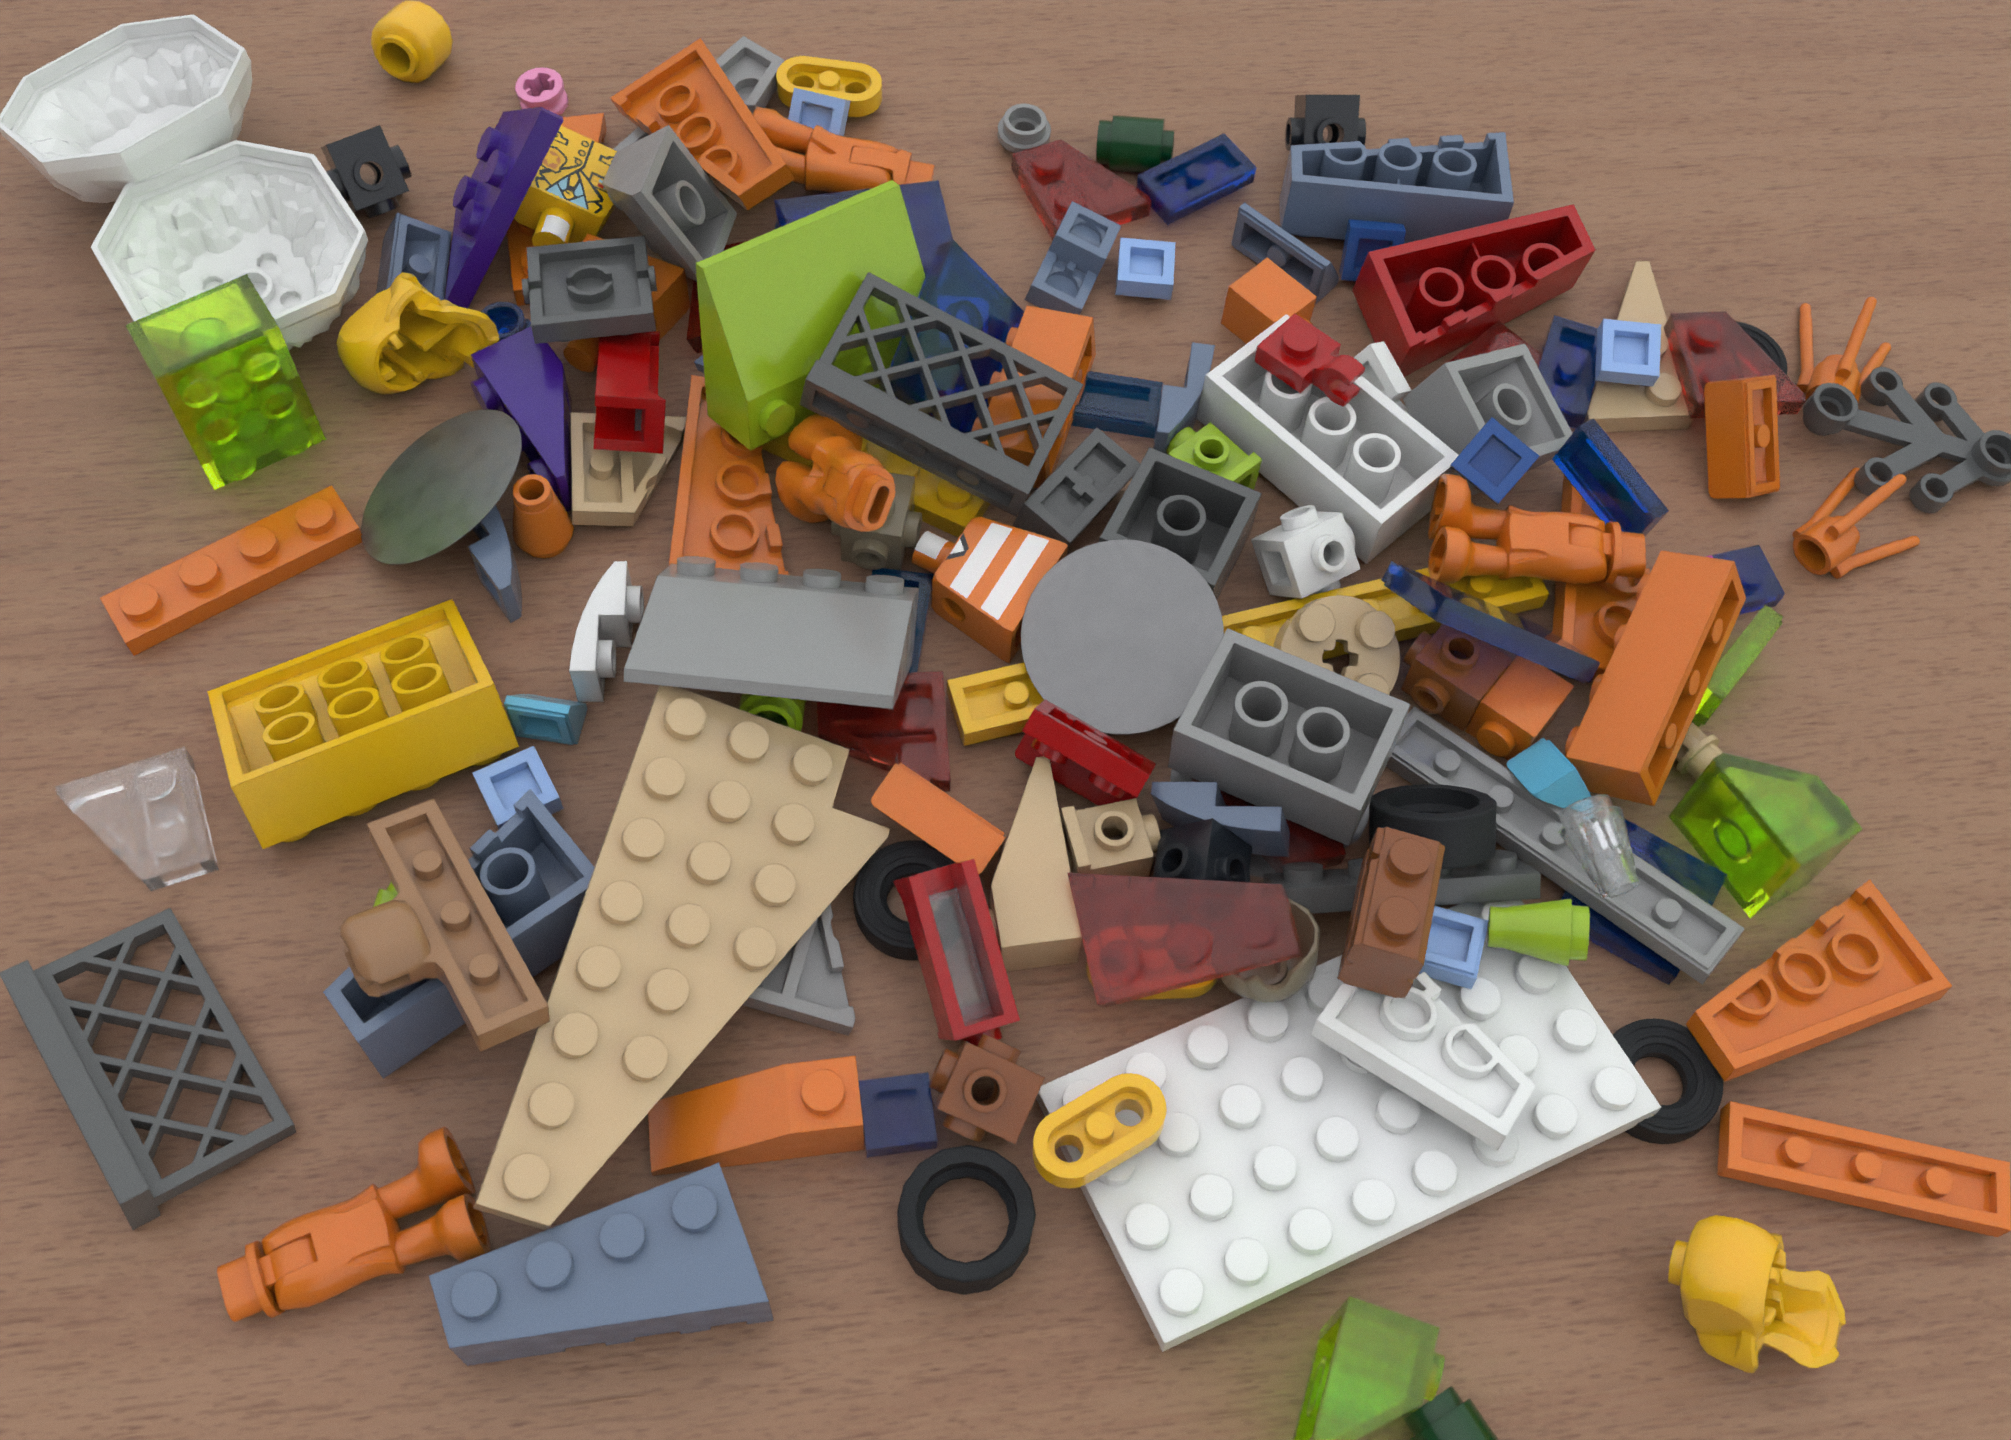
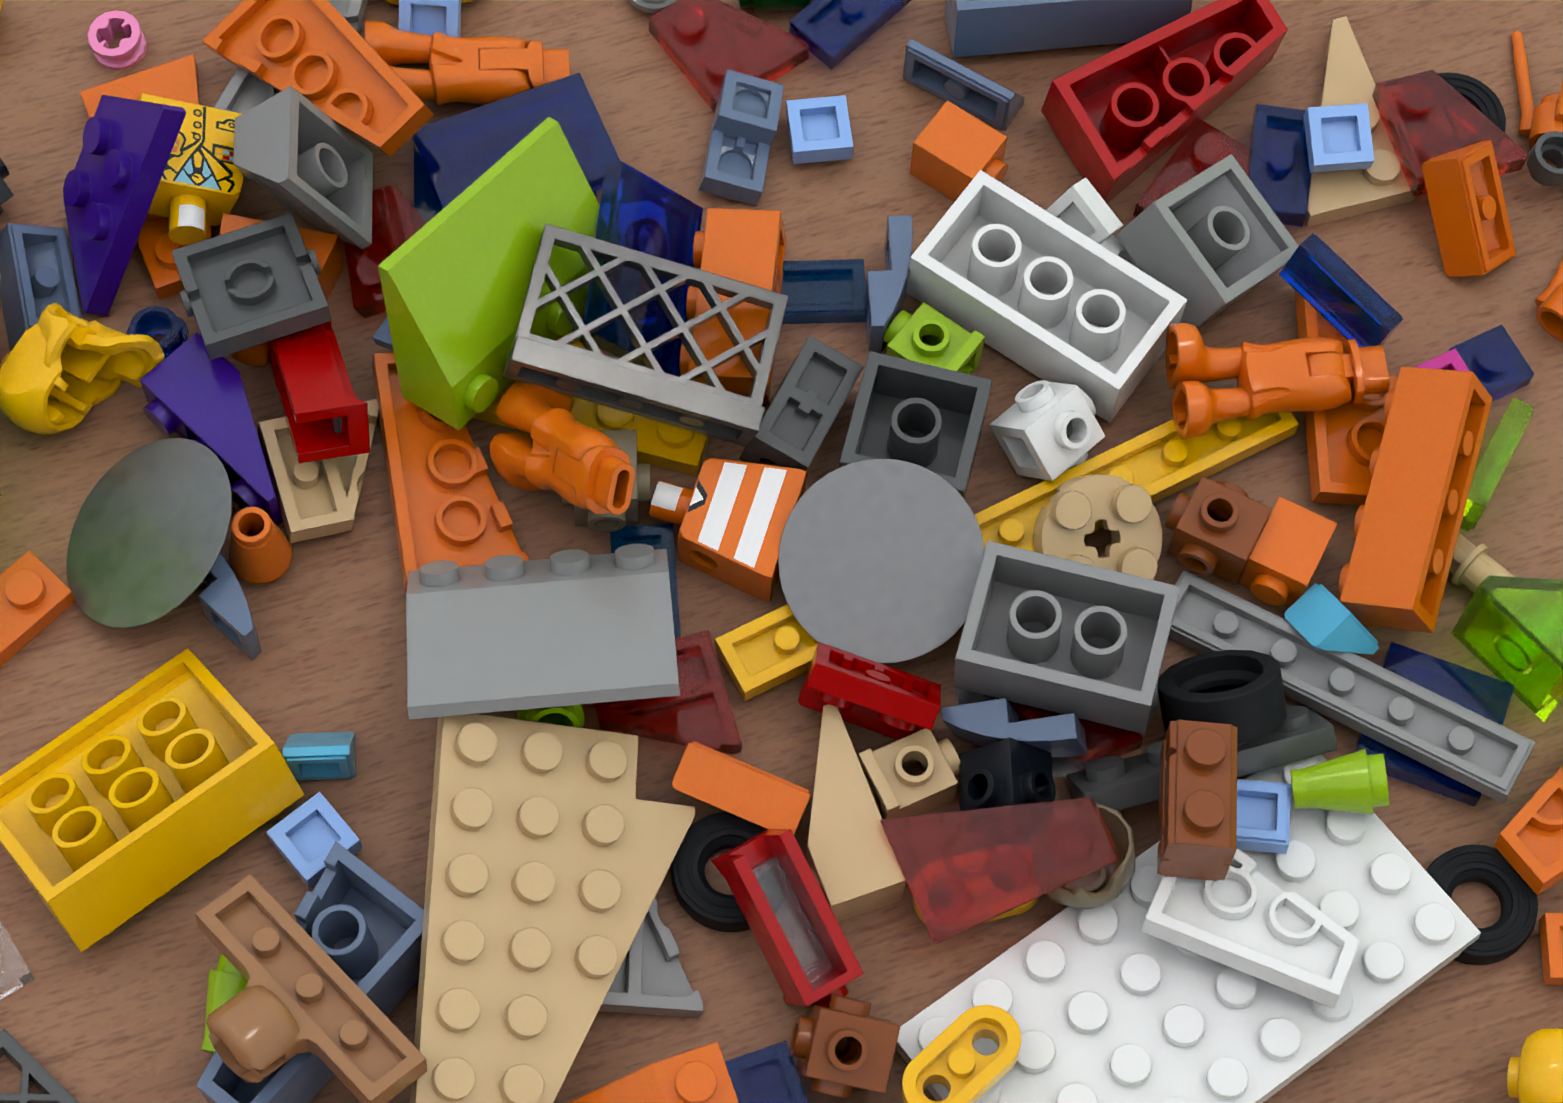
camera: 10 degrees left, 5 degrees up
(603, 627) = (355, 649): white slope -> none
(1306, 355) = (1009, 218): red plate -> none
(1365, 237) = (1049, 57): blue plate -> none
(1489, 623) = (1242, 476): clear blue tile -> none
(1494, 461) = (1221, 302): blue plate -> none
(1601, 844) = (1386, 686): clear cone -> none

